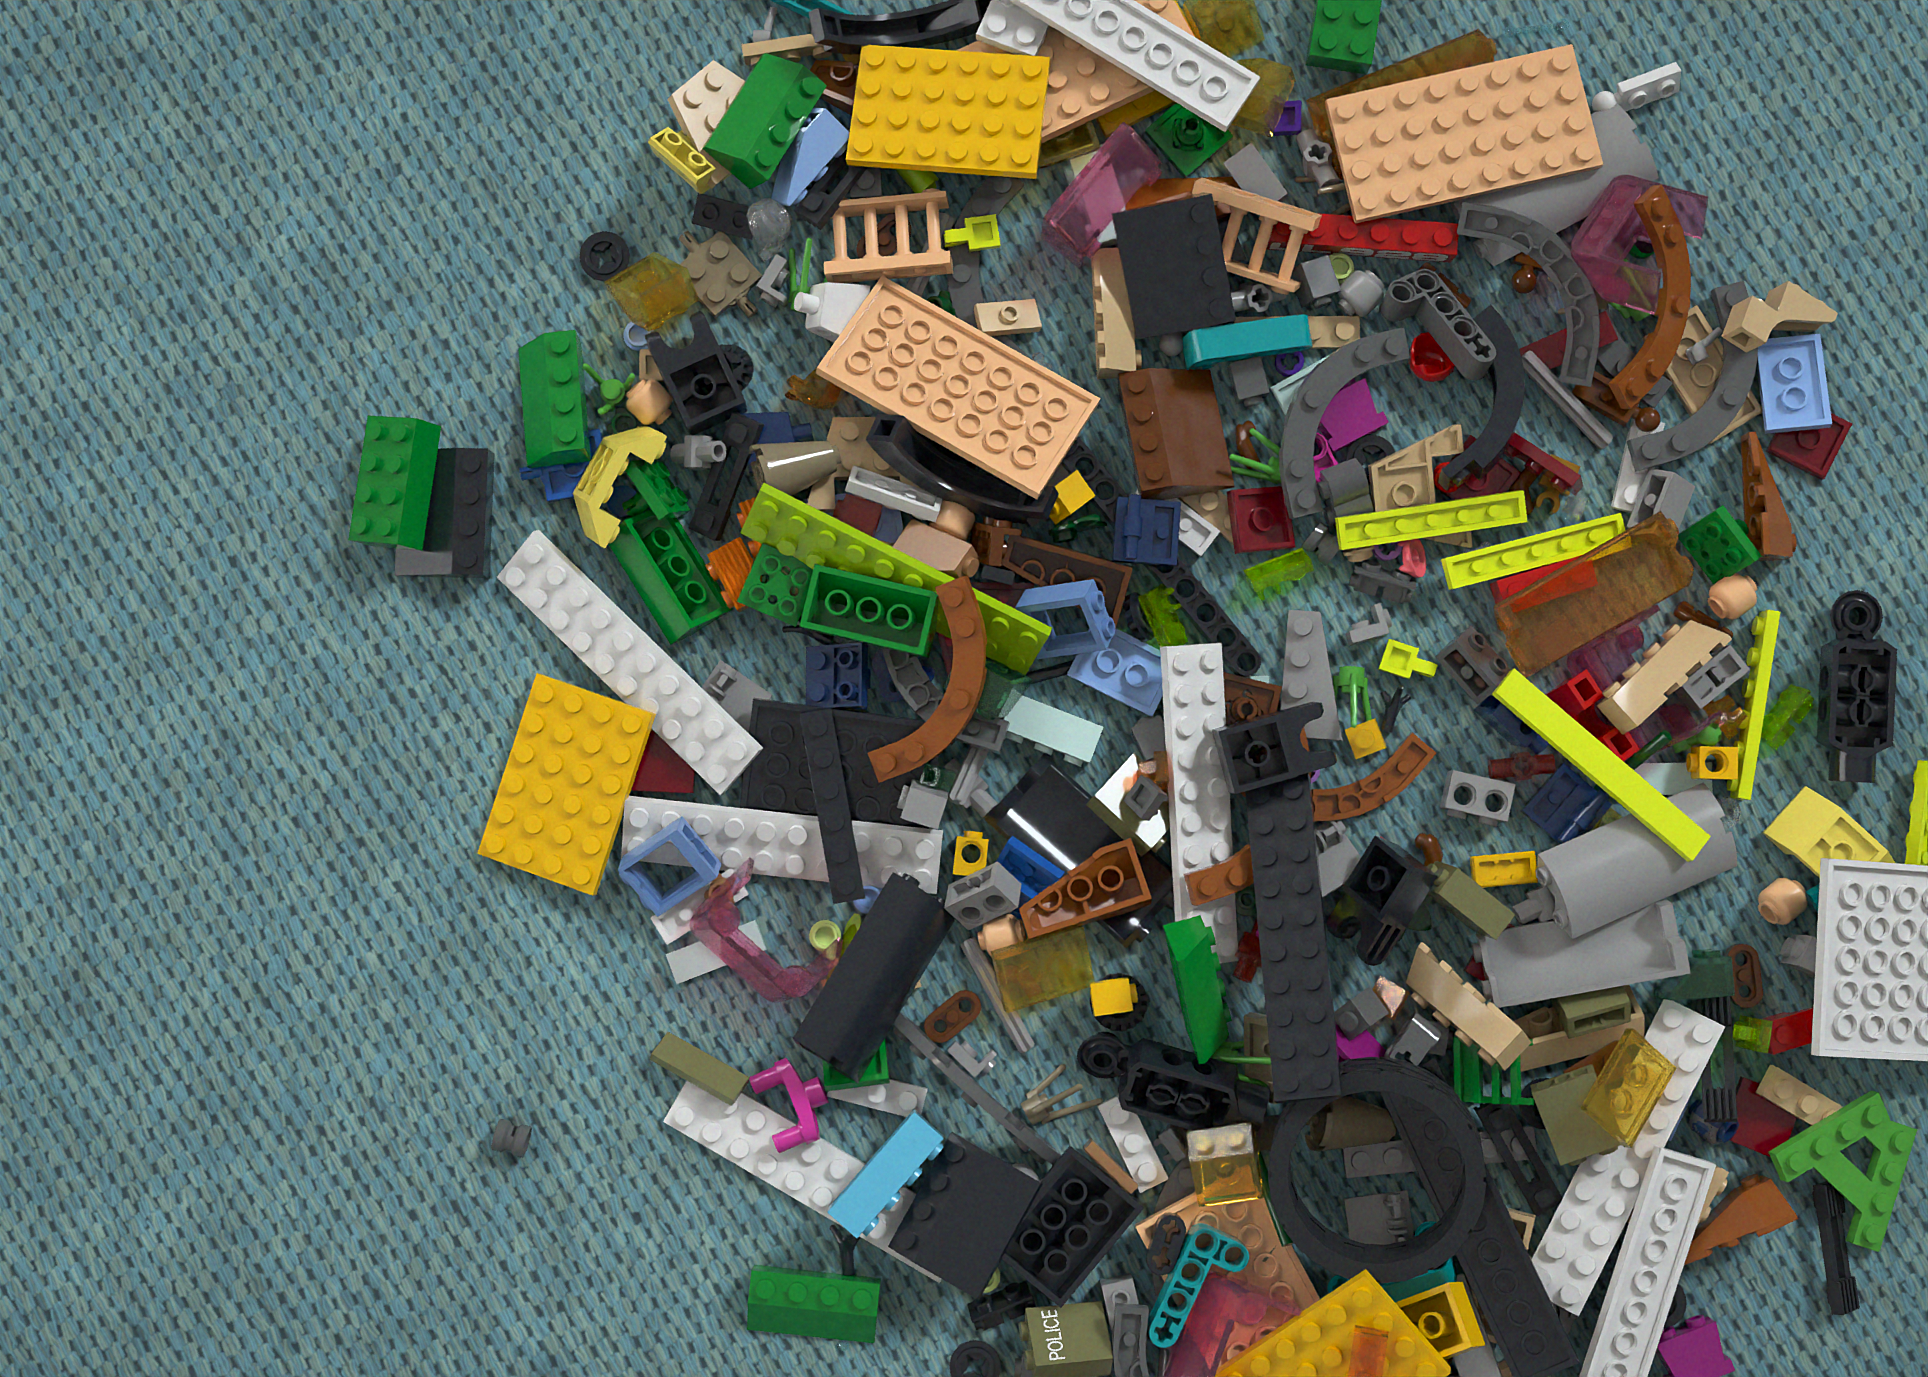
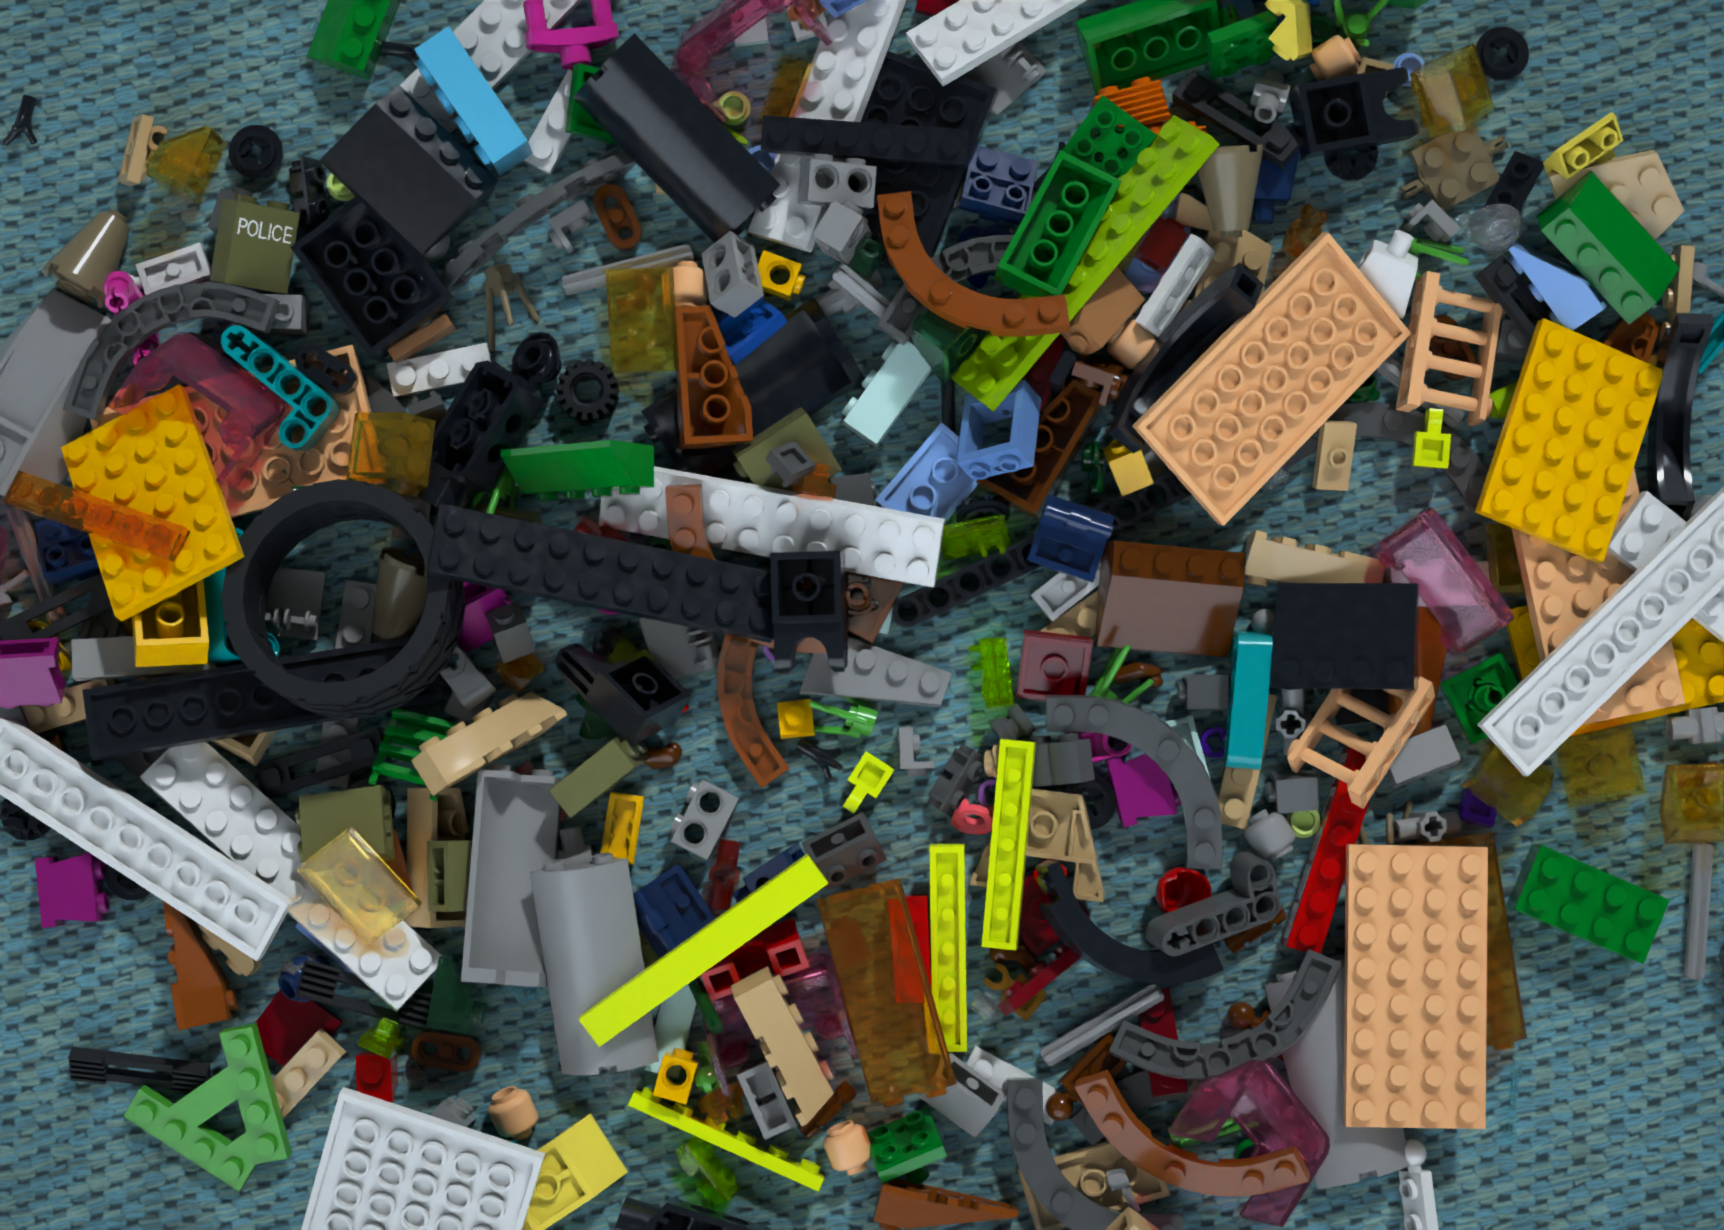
camera: 100 degrees right, 0 degrees up
(799, 891) = (787, 88): none -> clear yellow slope
(884, 820) = (837, 182): none -> light grey brick
(1112, 996) = (594, 380): yellow brick -> none

